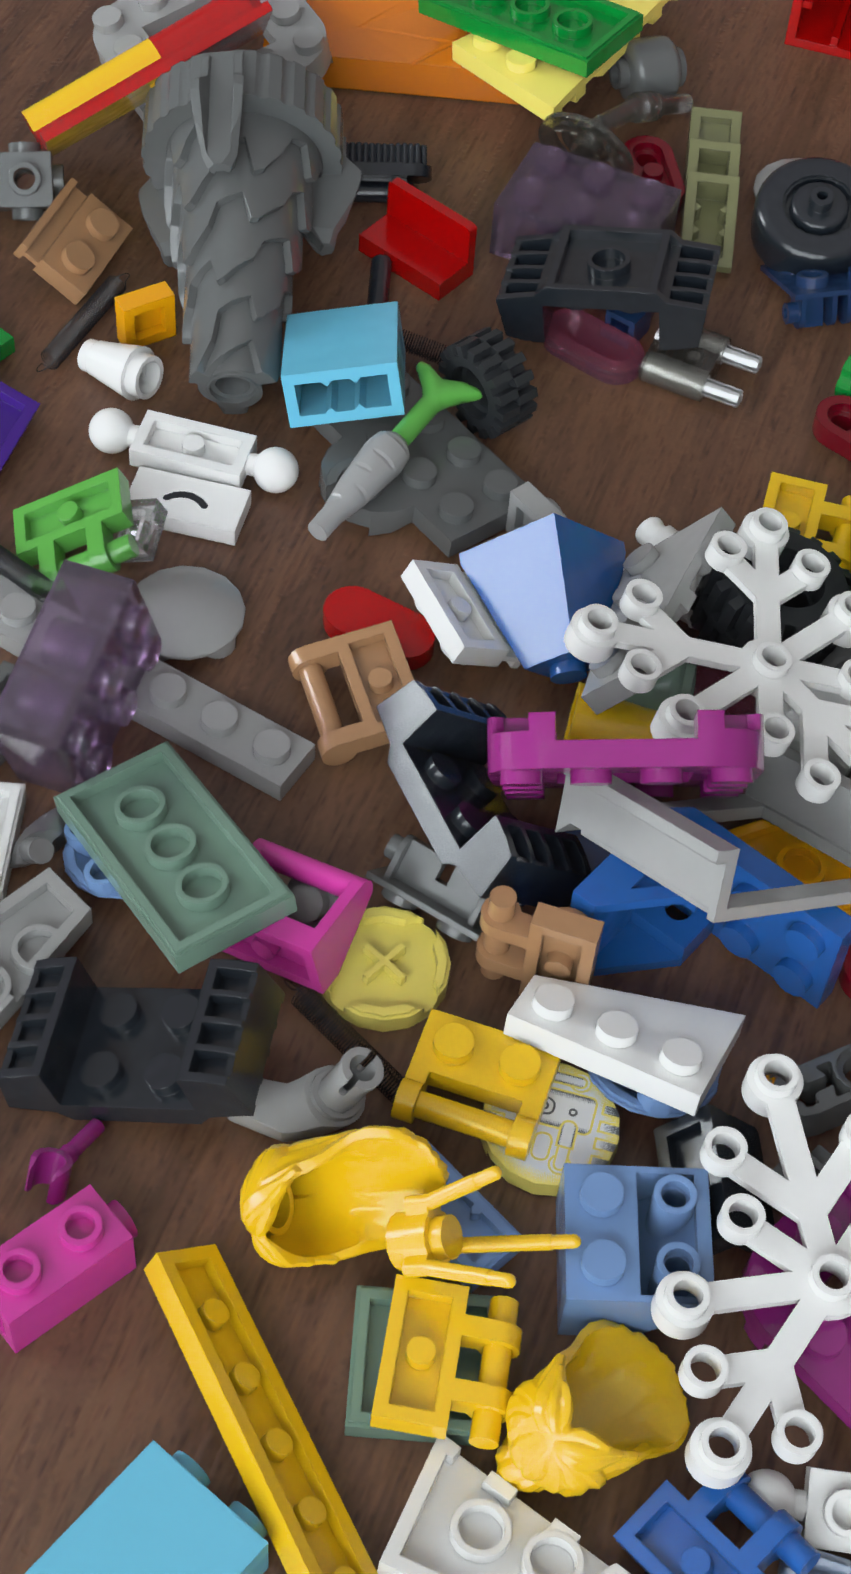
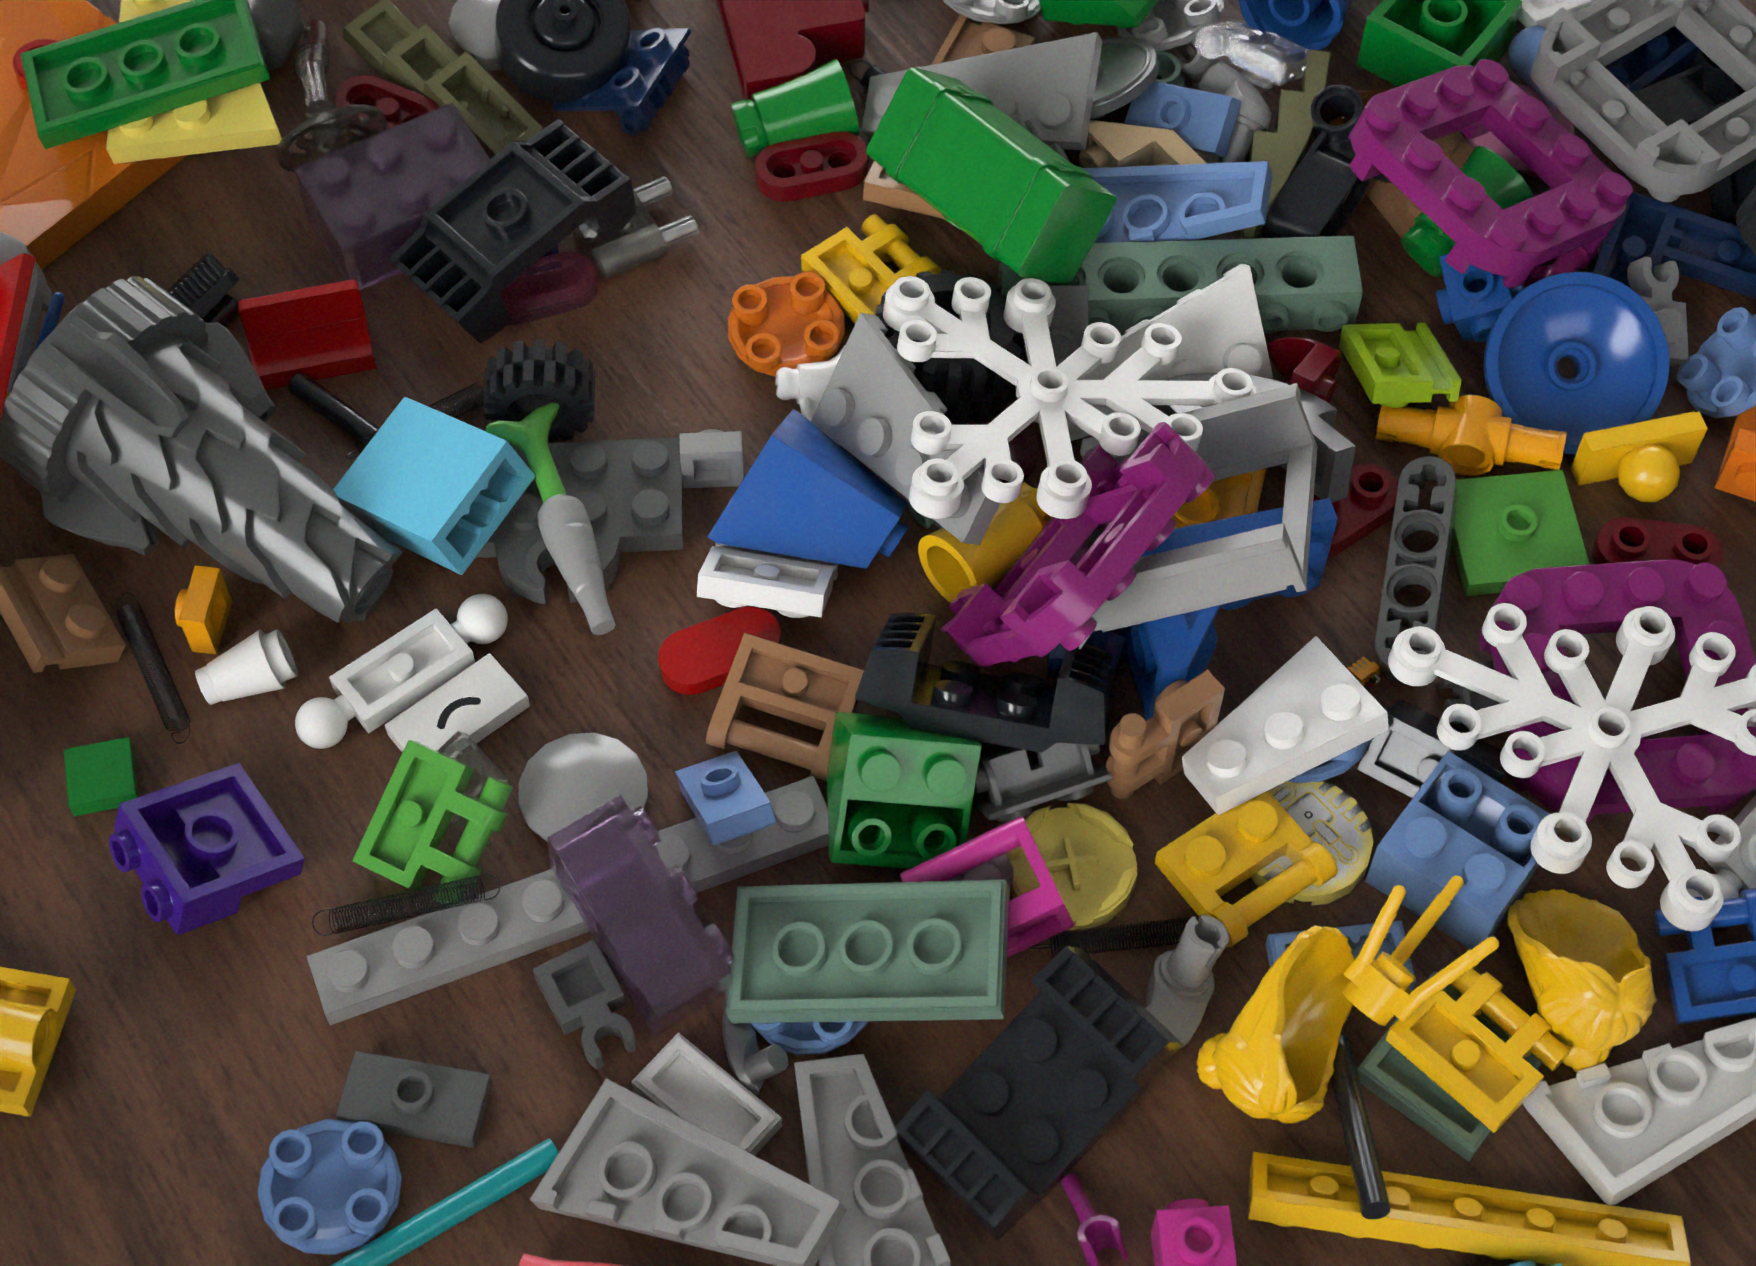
camera: 50 degrees left, 5 degrees up
(239, 691) = (725, 798): none -> medium blue plate
(287, 1308) = (1358, 1134): none -> black bar
(335, 794) = (896, 791): none -> green slope
(700, 488) = (785, 323): none -> orange dish

